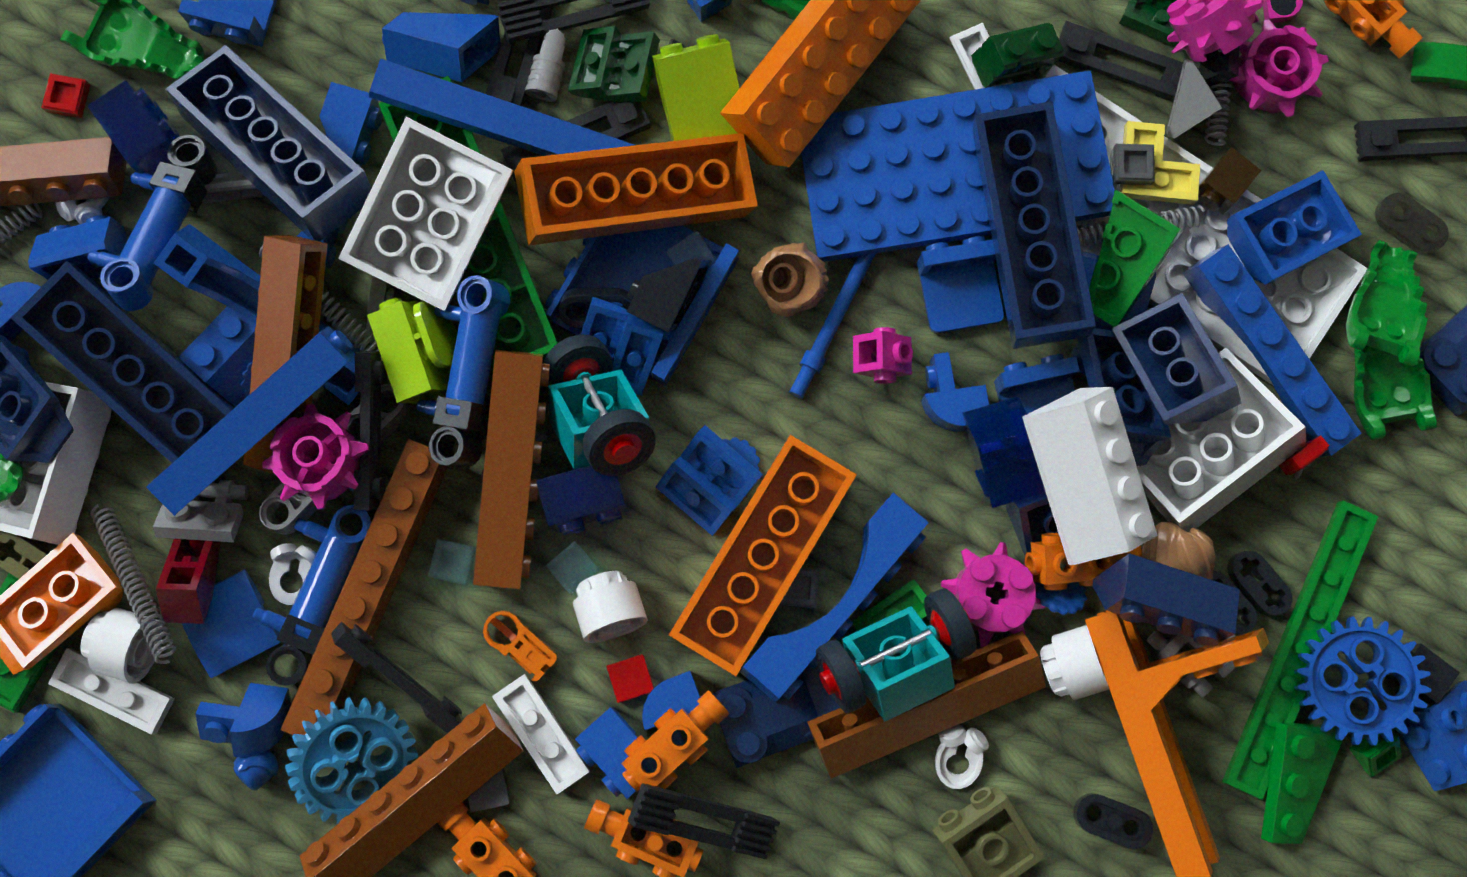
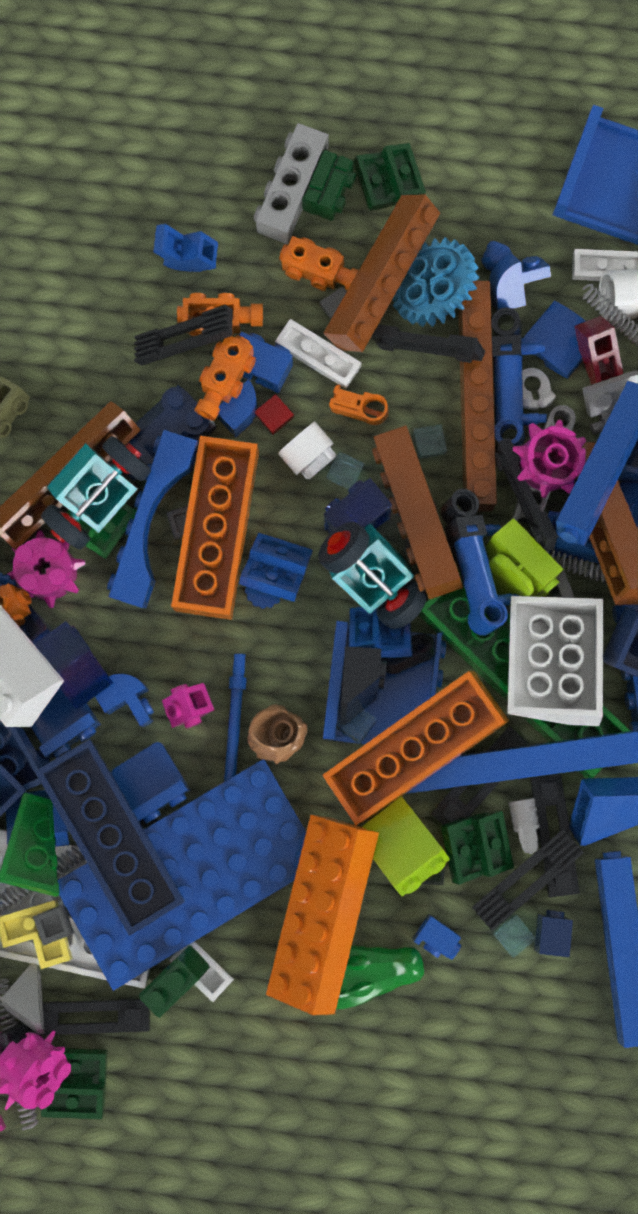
camera: 160 degrees right, 0 degrees up
(950, 740) = (21, 465): white piece -> none

